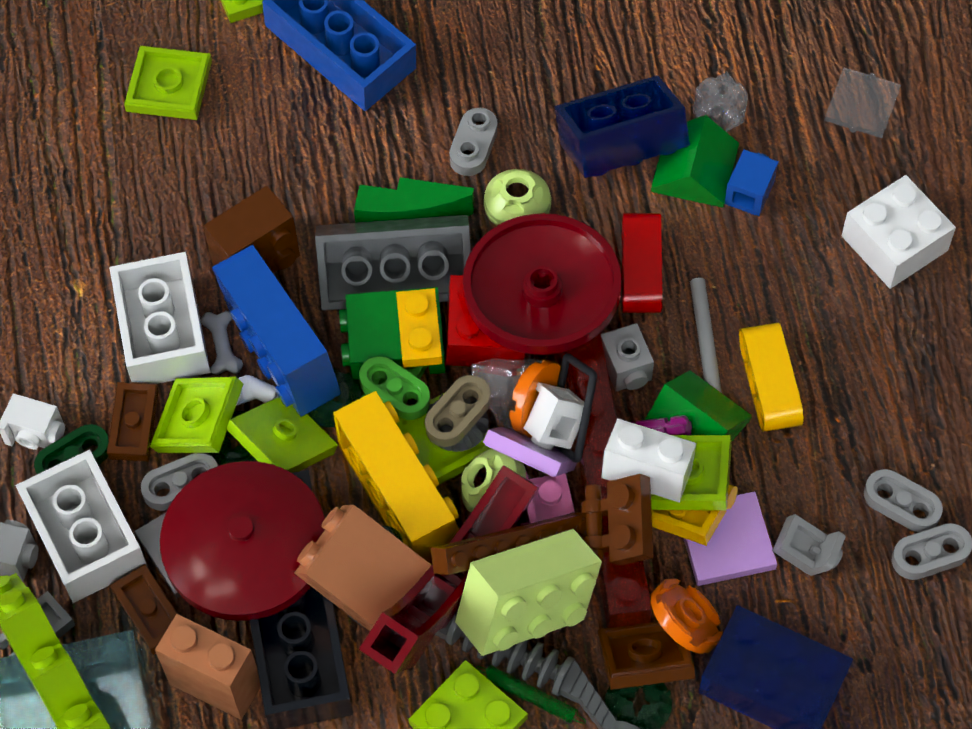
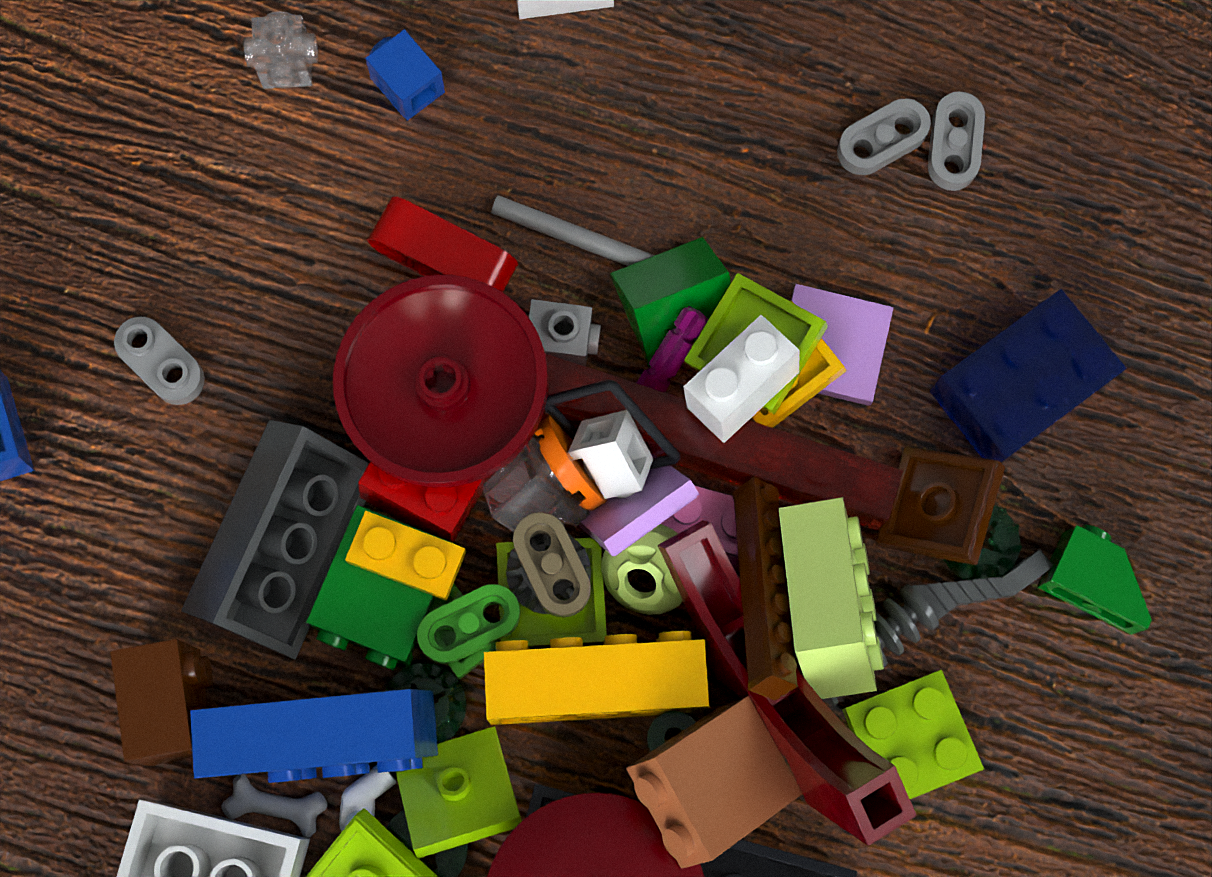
camera: 70 degrees left, 15 degrees up
(412, 200) = (213, 479): green slope -> none
(502, 207) = (284, 370): yellowish green piece -> none
(558, 710) = (916, 661): green piece -> none
(622, 126) = (254, 176): clear blue brick -> none
(628, 520) = (803, 439): reddish brown plate -> none
(686, 616) = (919, 439): orange tile -> none
(701, 169) = (338, 123): green slope -> none
(770, 377) = (665, 190): yellow beam -> none
(808, 546) = (893, 261): light grey bracket -> none

